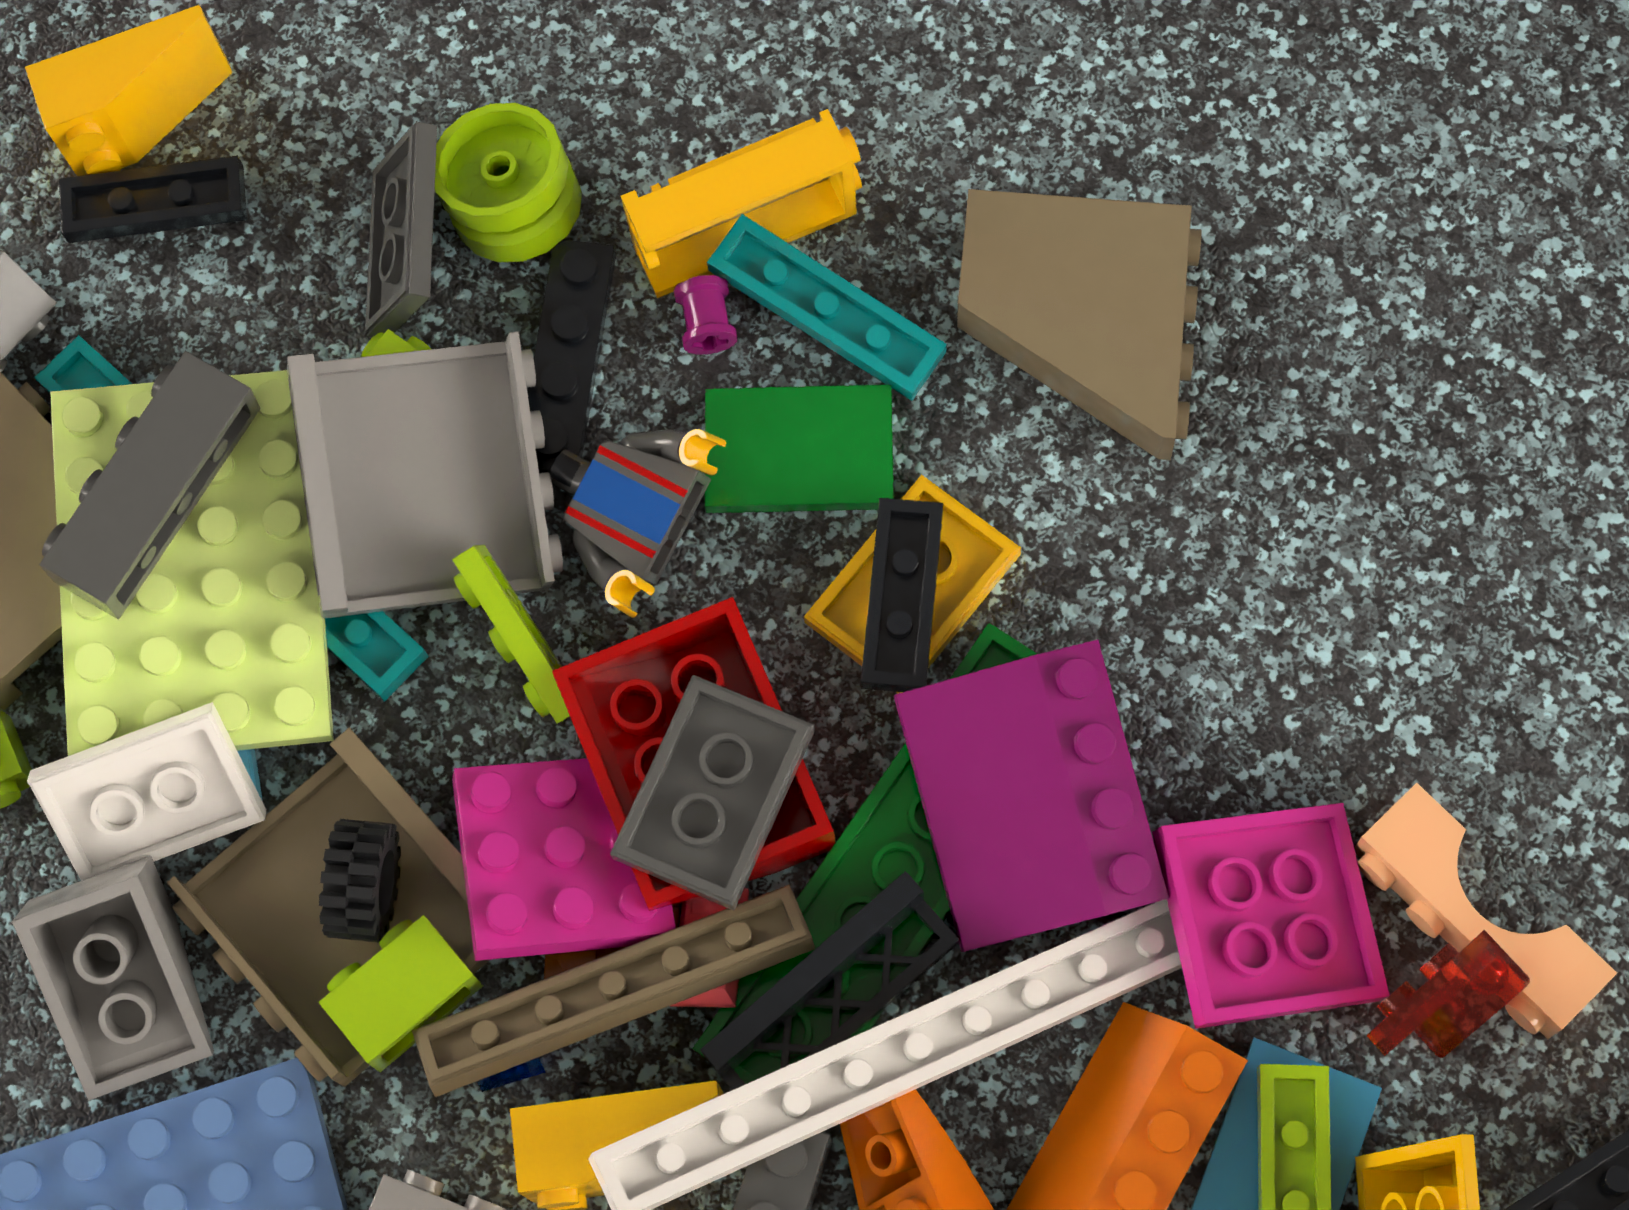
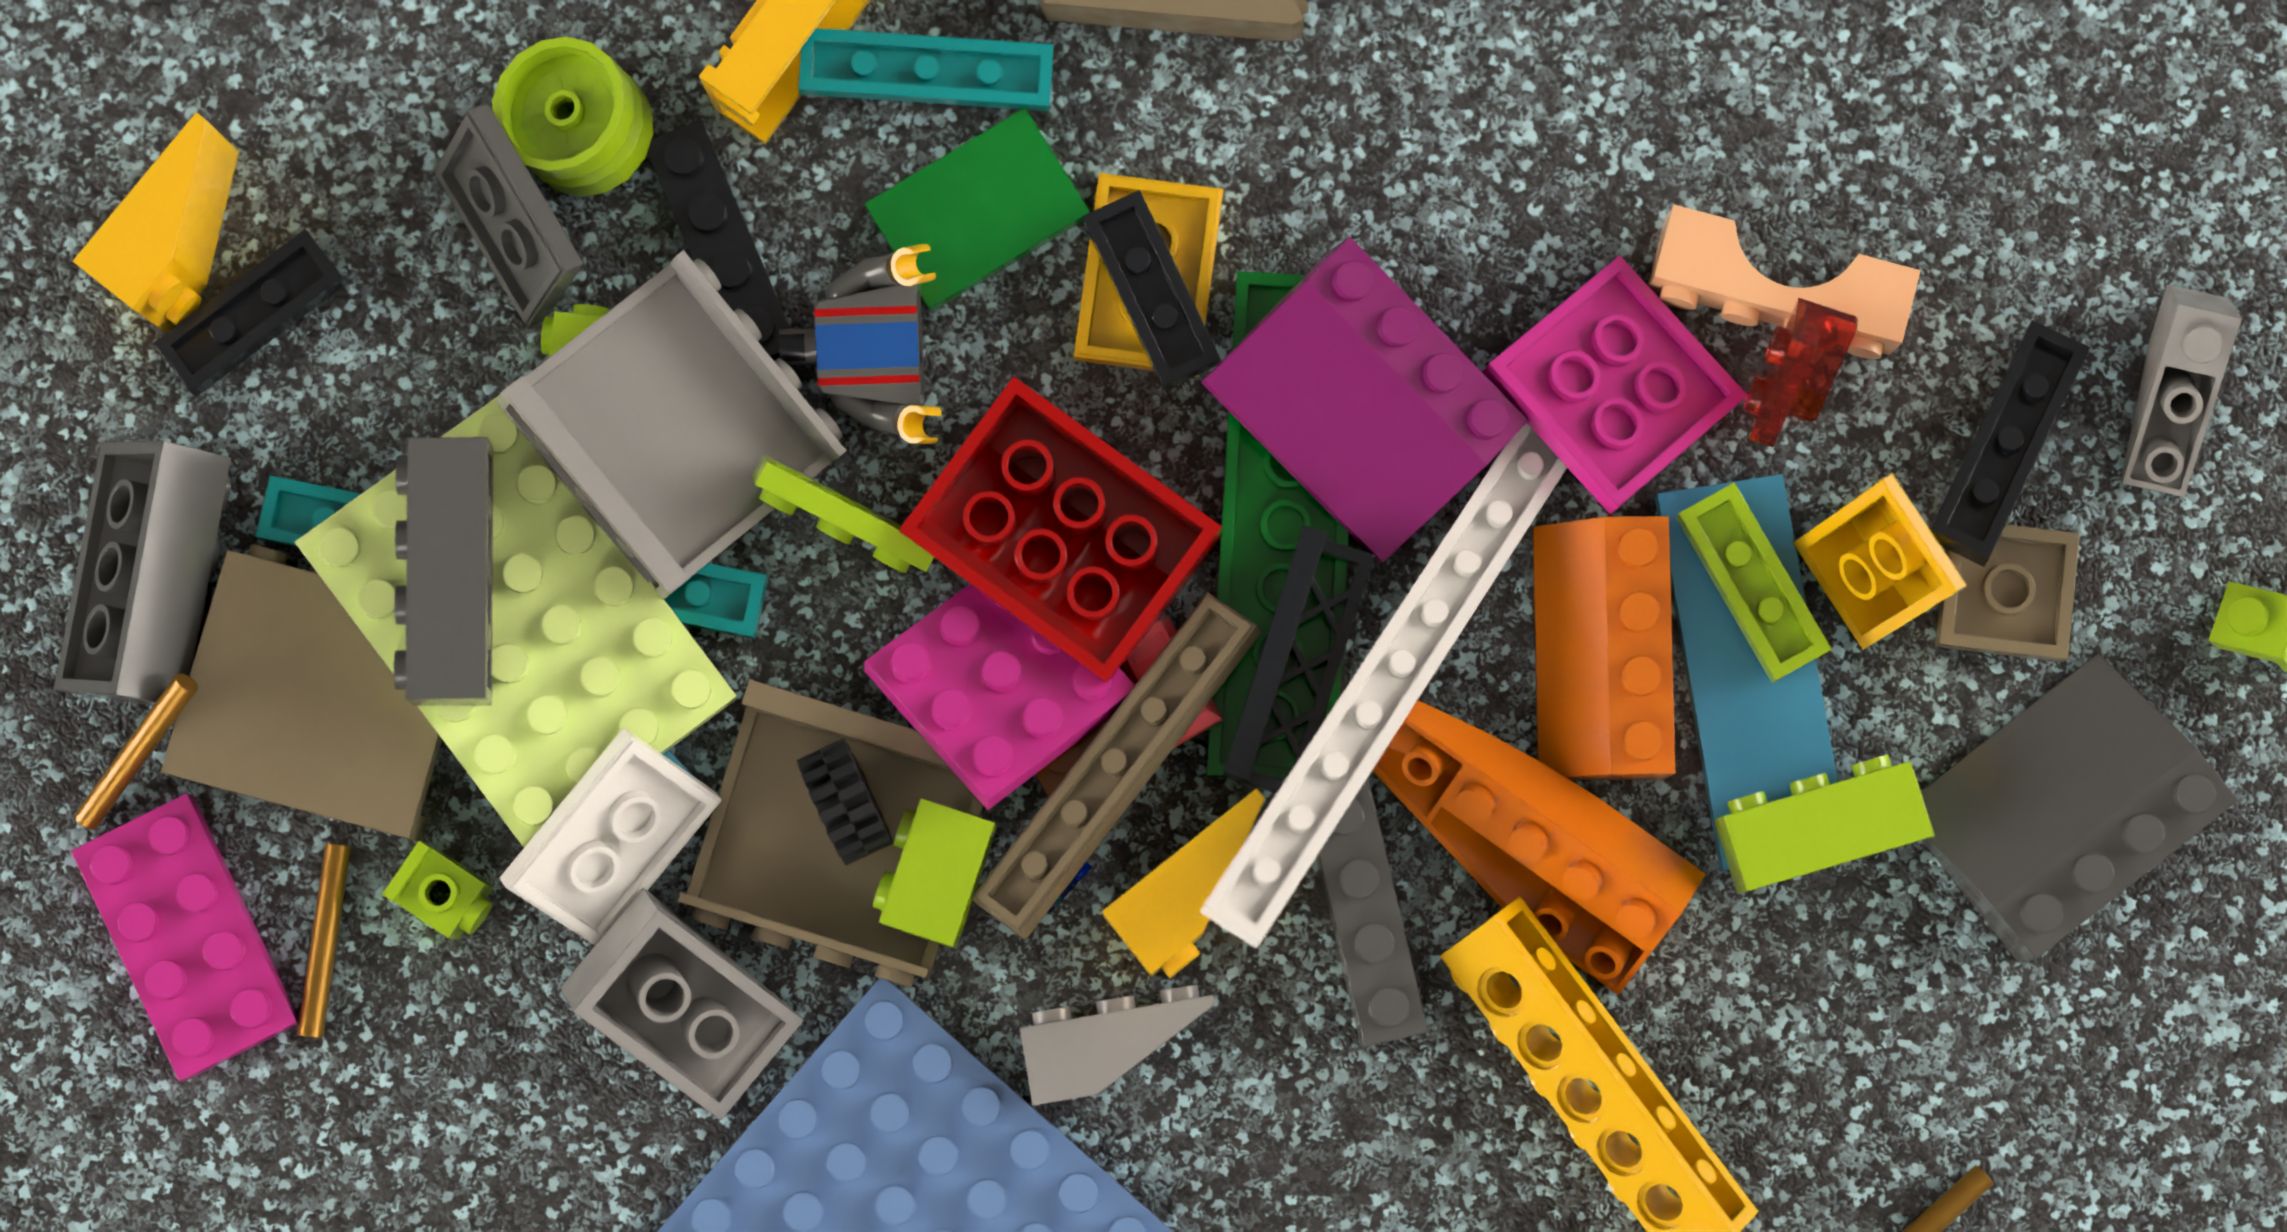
camera: 35 degrees left, 10 degrees up
(705, 315) = (823, 136): magenta bush -> none
(713, 792) = (1102, 552): dark grey tile -> none

